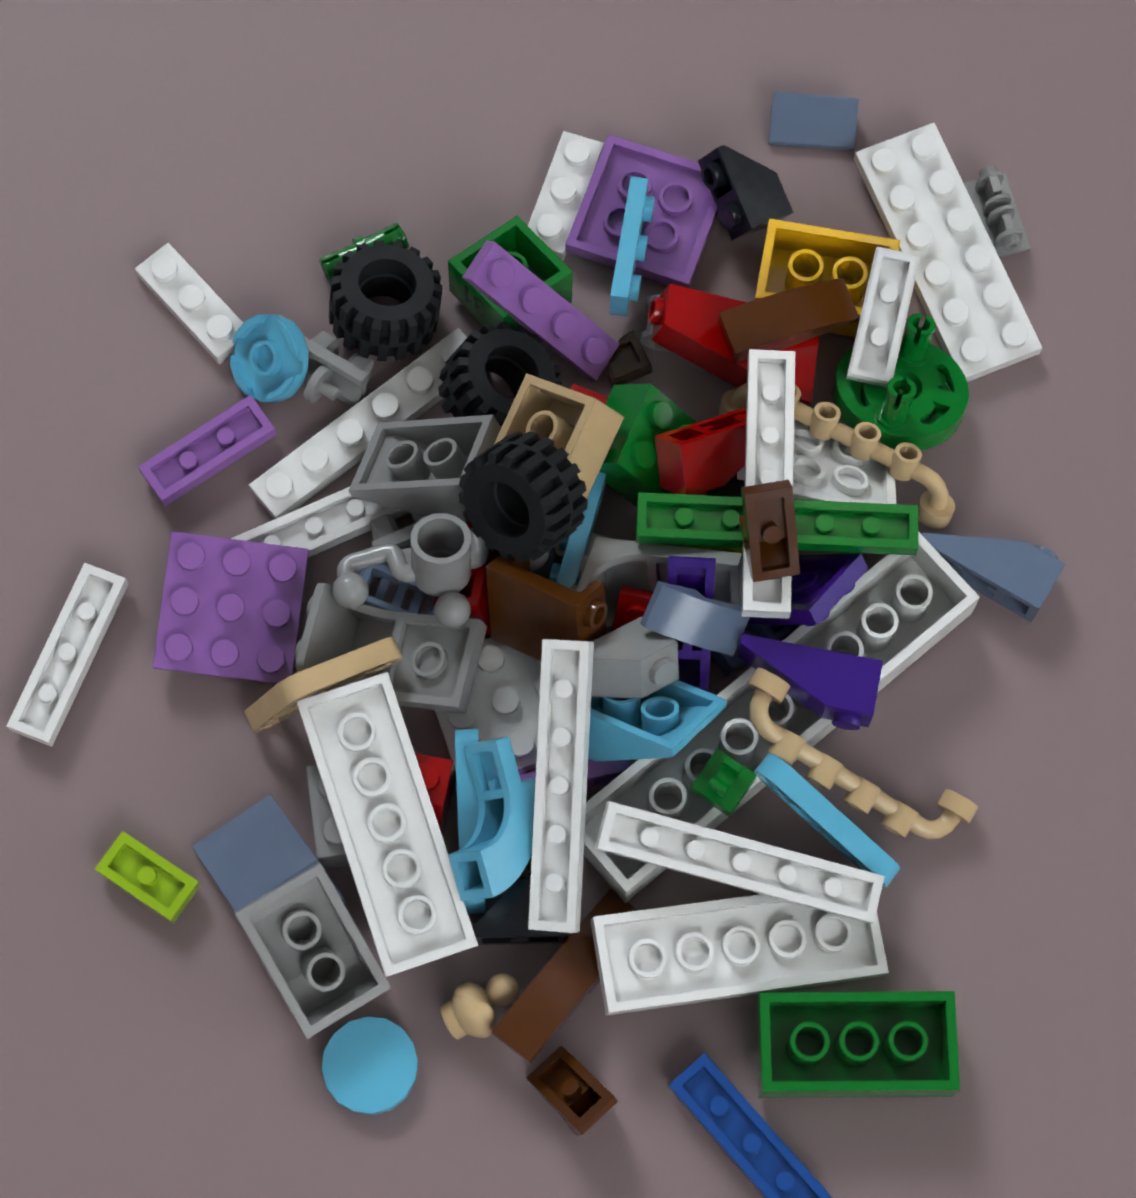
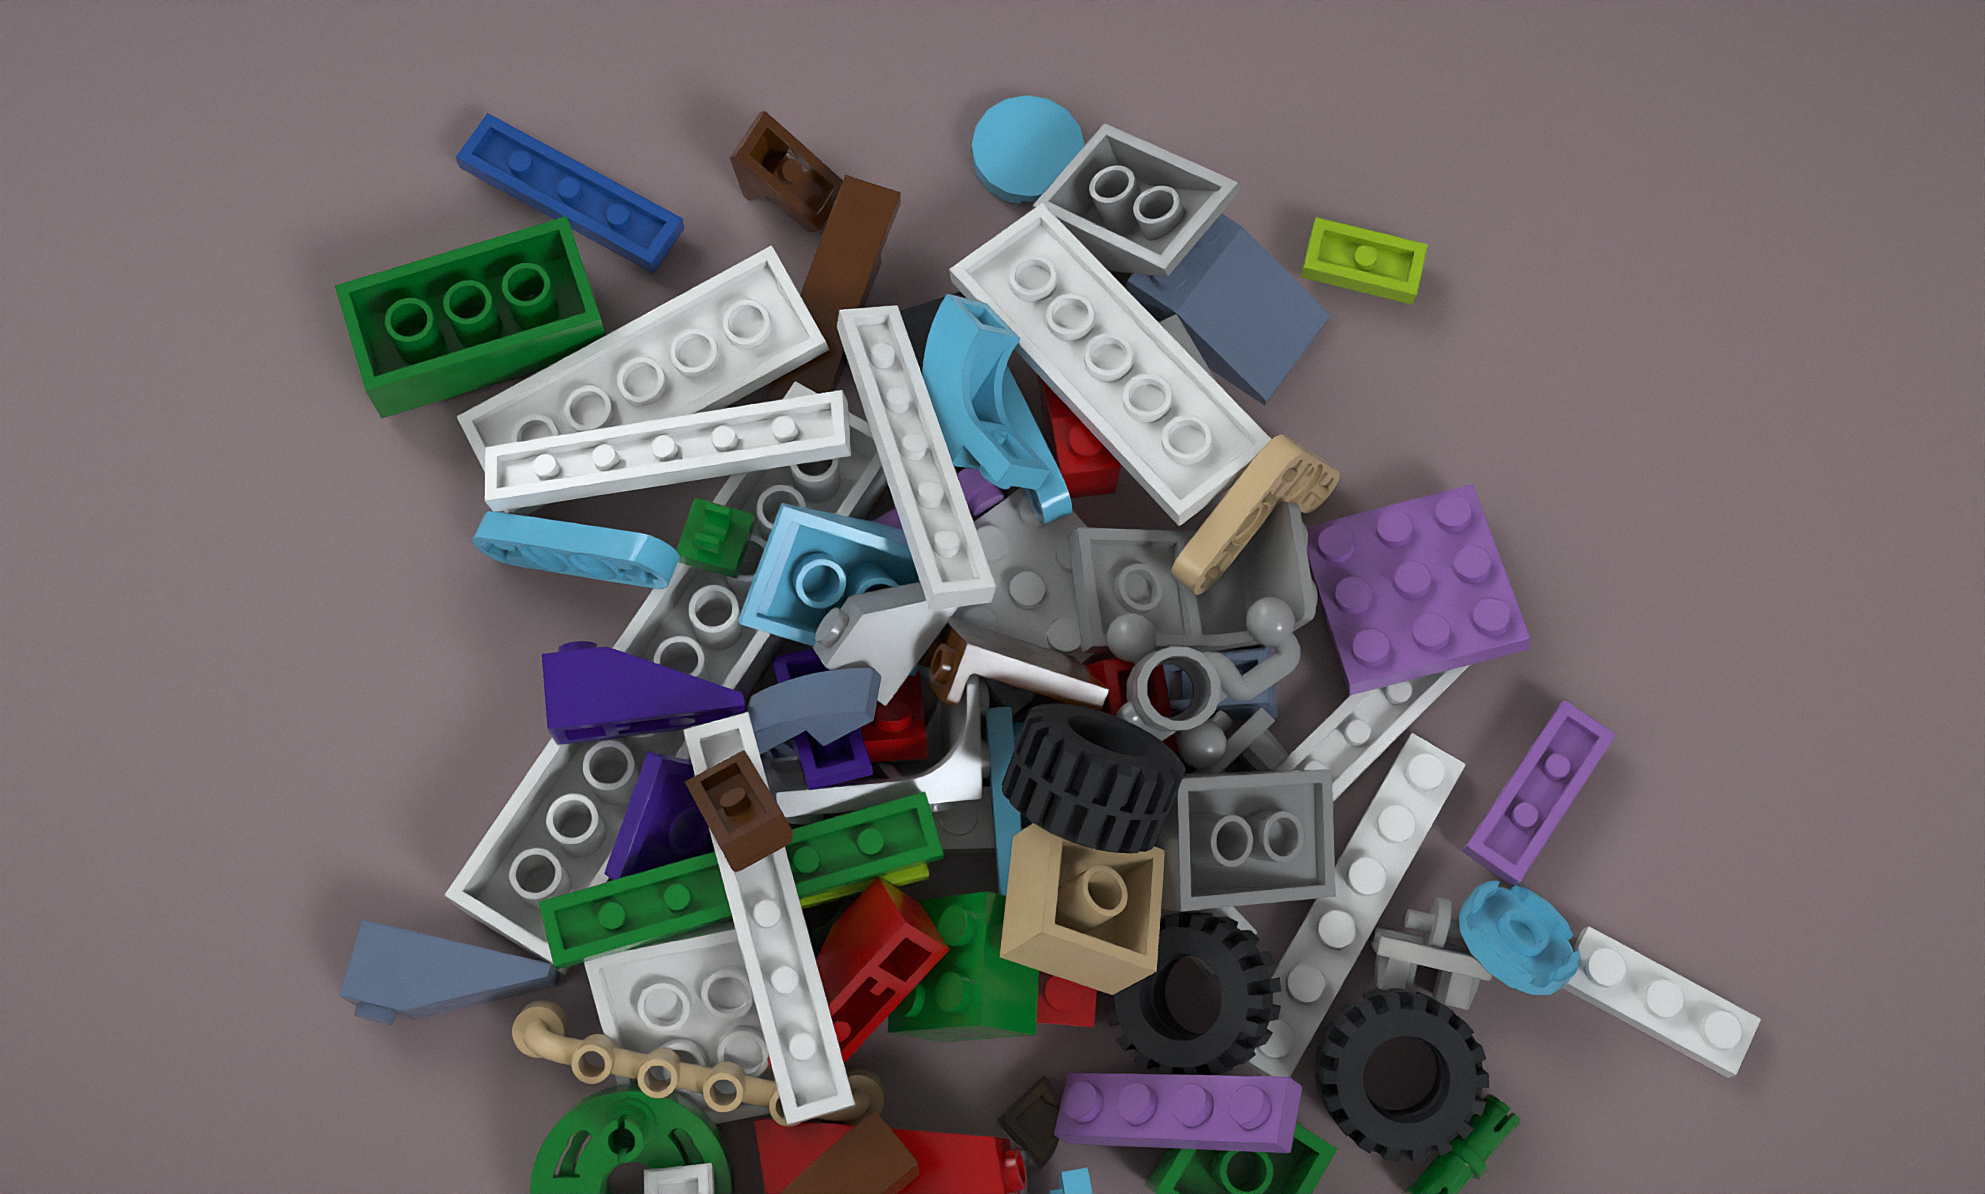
camera: 155 degrees right, 0 degrees up
(67, 654) = (1582, 481): white plate -> none
(472, 1006) = (934, 236): tan animal -> none
(826, 771) = (542, 598): tan bar -> none

